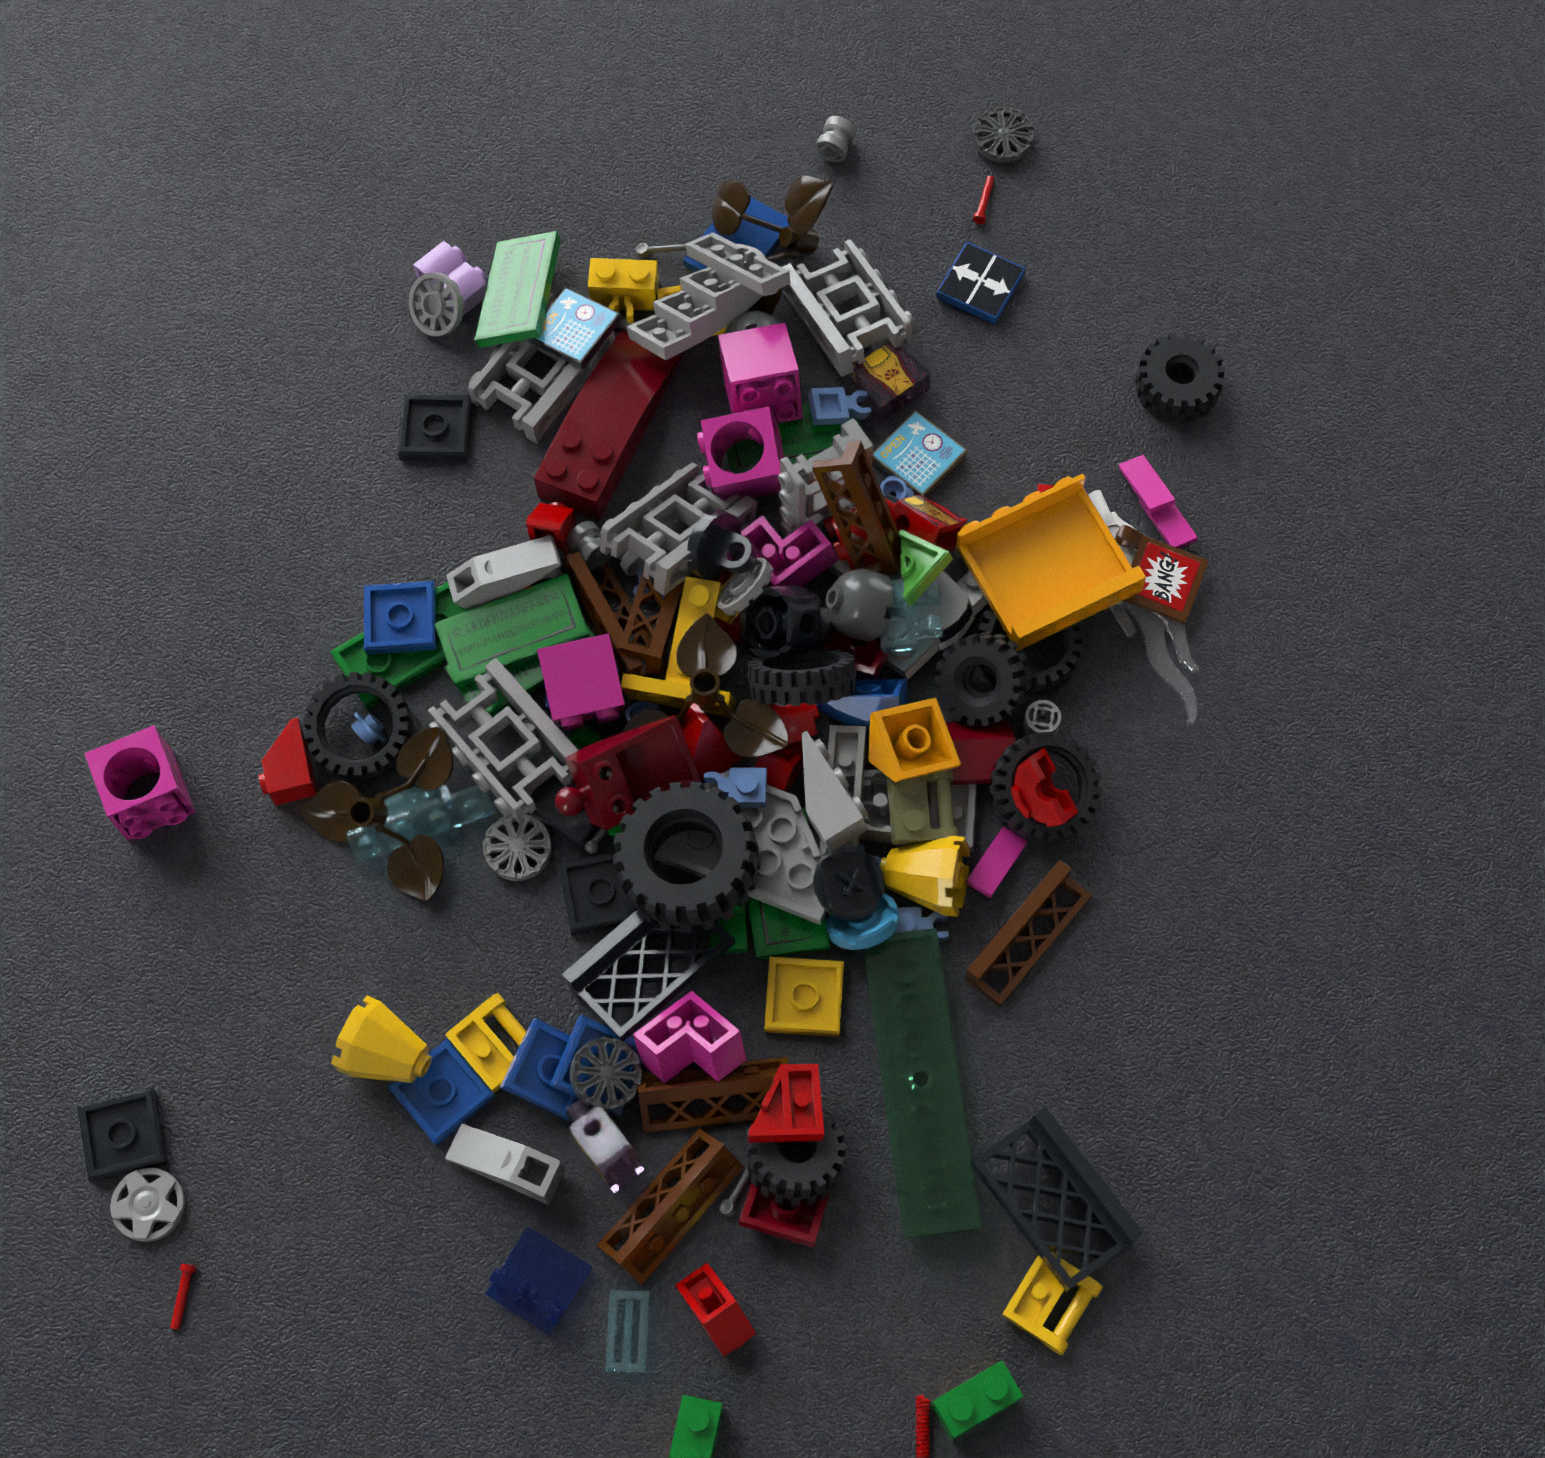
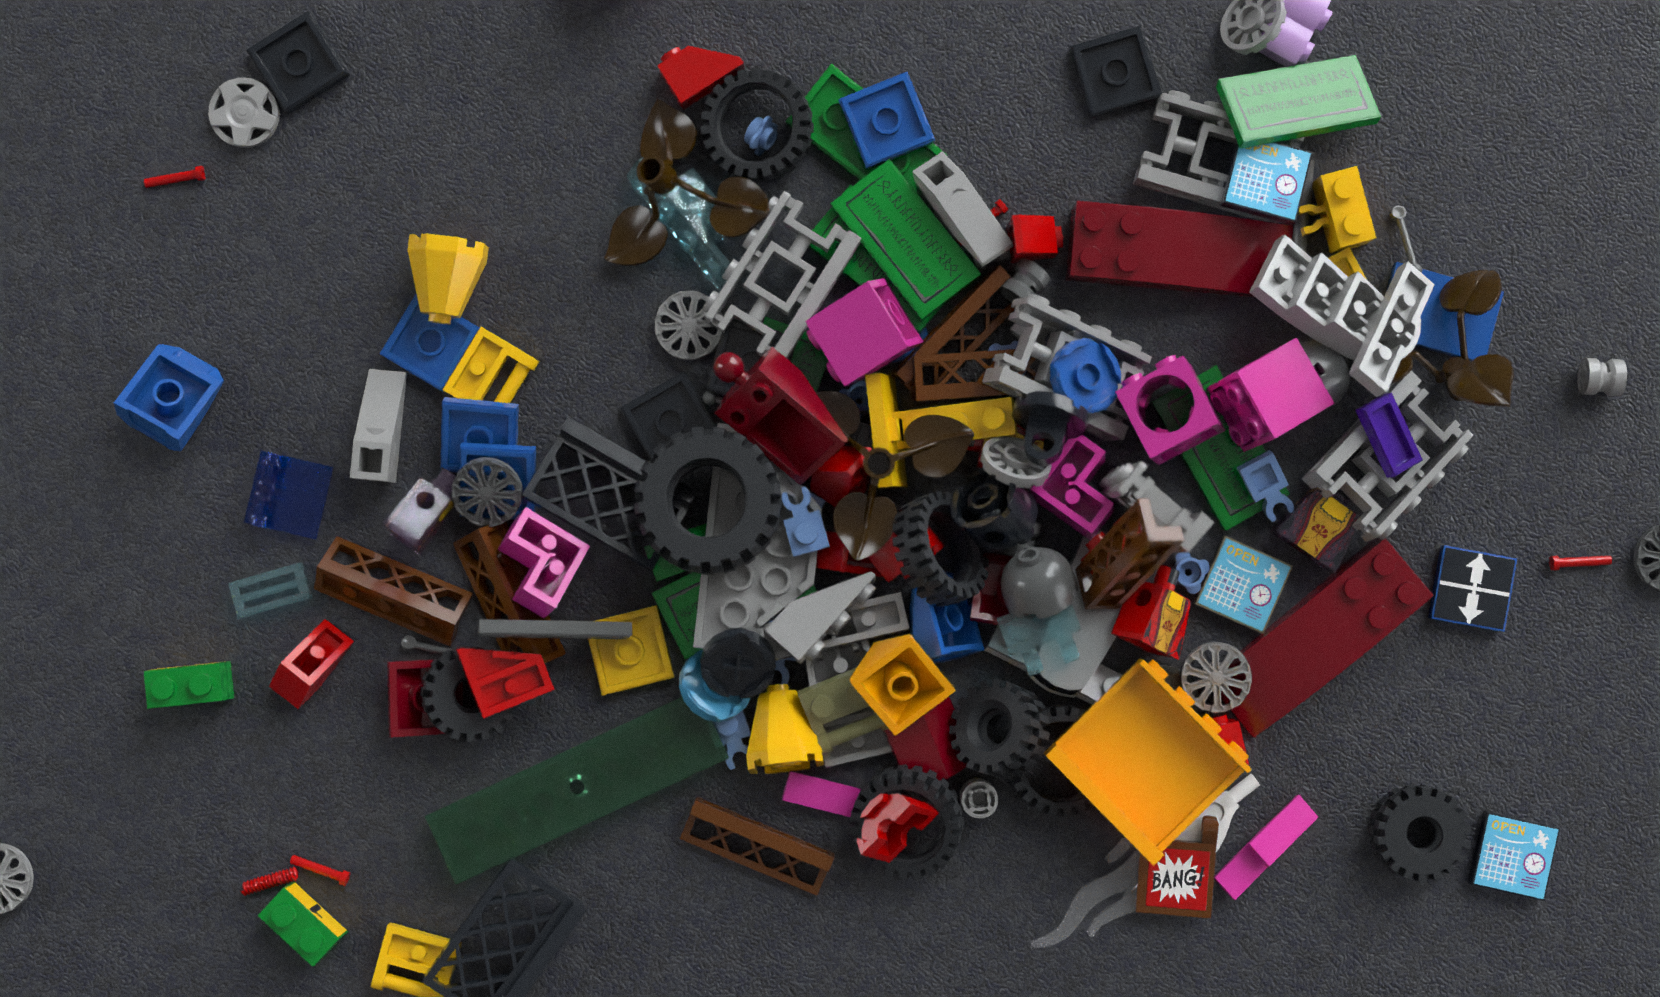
camera: 70 degrees right, 20 degrees up
(398, 1368) = (169, 396): none -> blue slope
(685, 505) = (1086, 374): none -> blue tile
(759, 1046) = (554, 629): none -> dark grey tile
(827, 294) = (1389, 435): none -> dark purple tile
(920, 565) = (1093, 633): bright green tile -> none
(929, 1367) = (342, 877): none -> red piece
(983, 404) = (1326, 633): none -> dark red slope
(991, 493) = (1216, 677): none -> light grey wheel
(1221, 315) = (1514, 855): none -> medium azure tile

